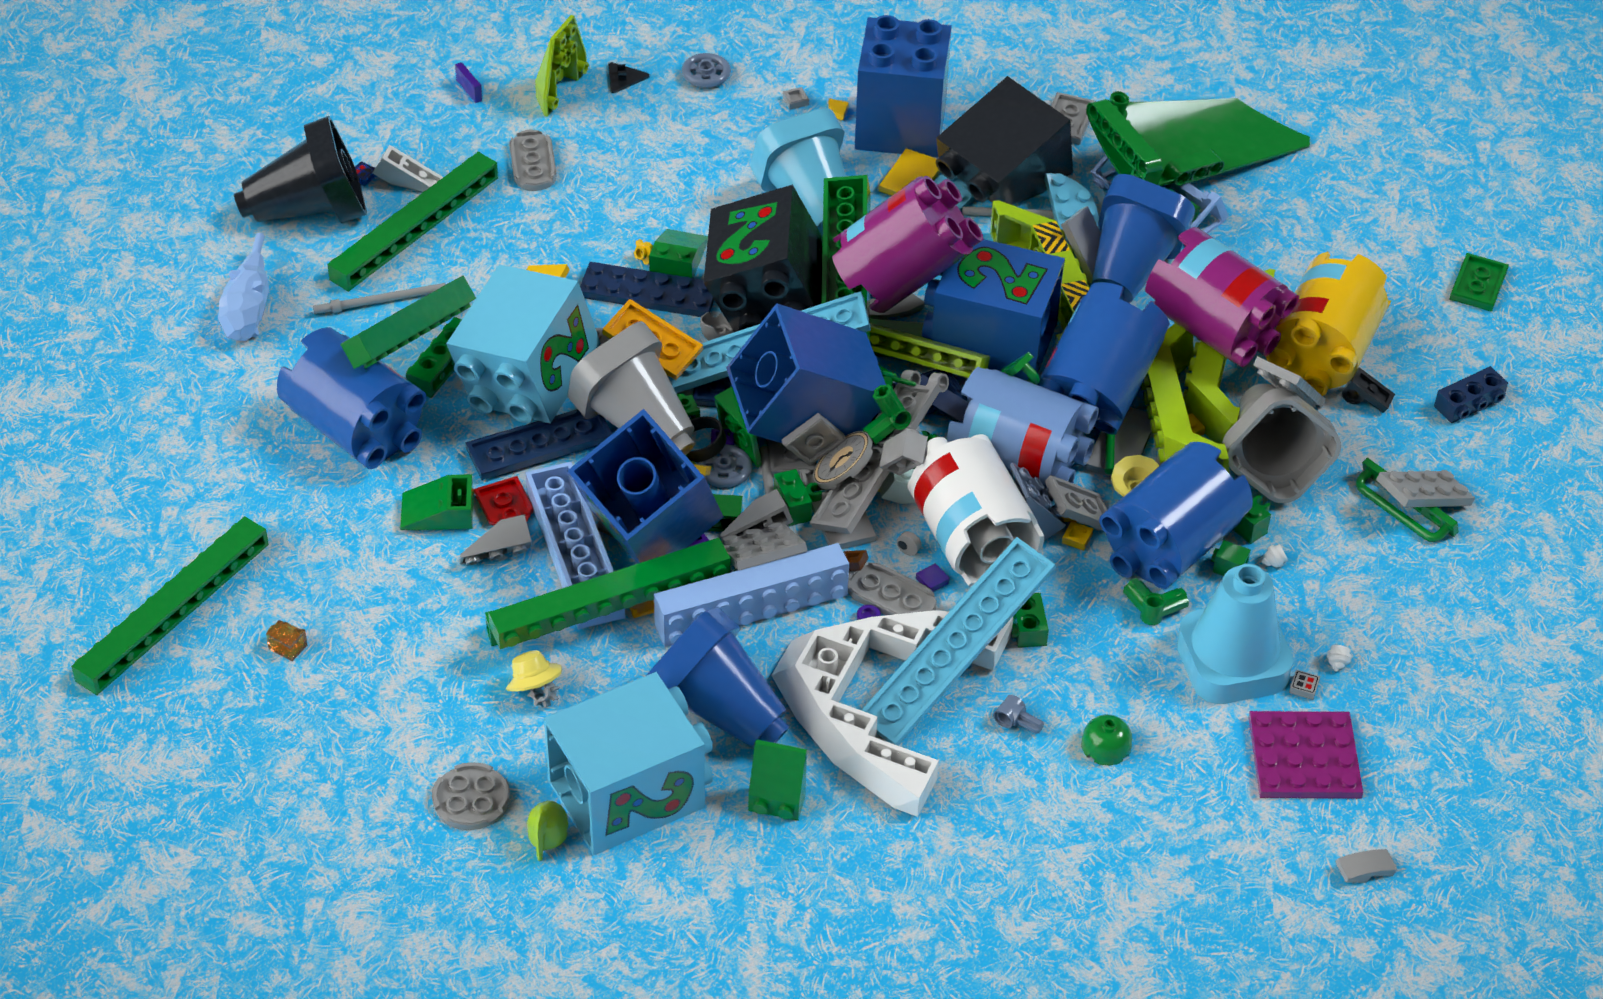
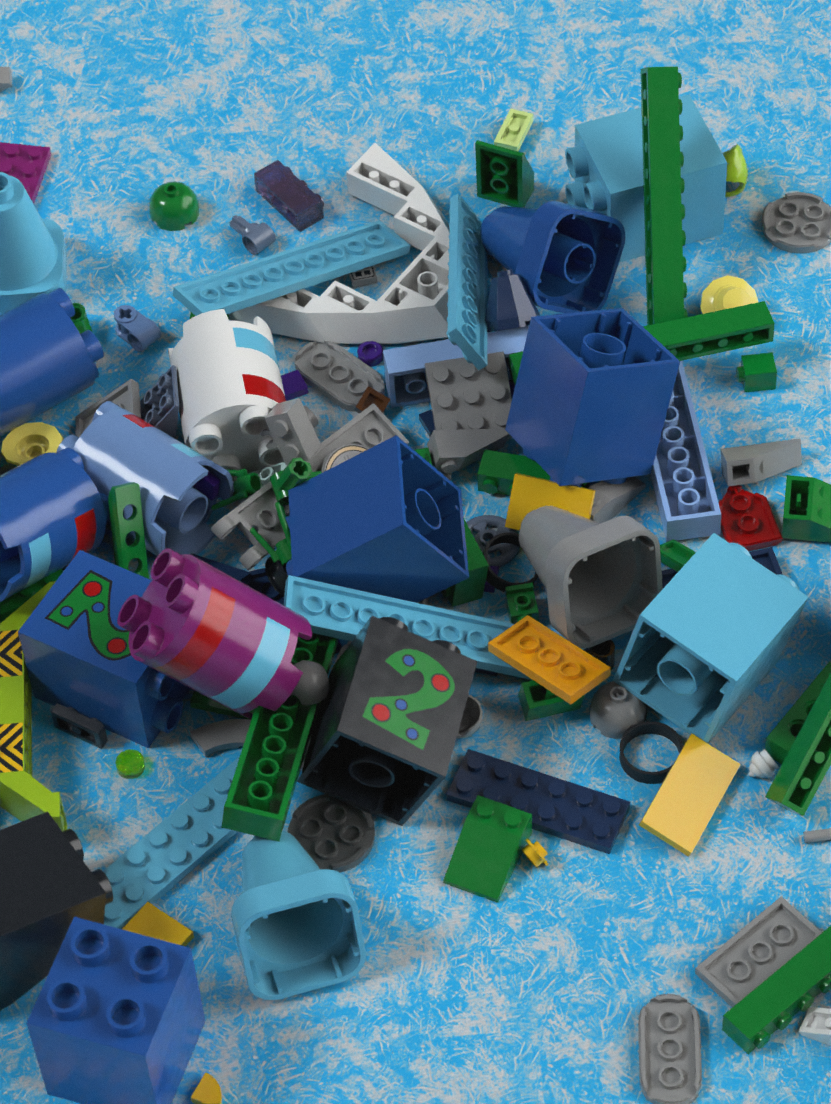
camera: 165 degrees left, 5 degrees up
(474, 211) = (757, 951): none -> light grey plate
(555, 451) = (675, 554): none -> green tile
(604, 677) = (663, 194): none -> green brick
(738, 601) = (509, 303): none -> dark blue cone
(781, 863) = (514, 129): none -> yellowish green plate
(786, 632) = (467, 284): none -> medium azure plate
(826, 268) = (313, 684): none -> light grey hair
(994, 759) = (289, 195): none -> clear purple brick
(1092, 606) = (135, 328): none -> medium blue piece

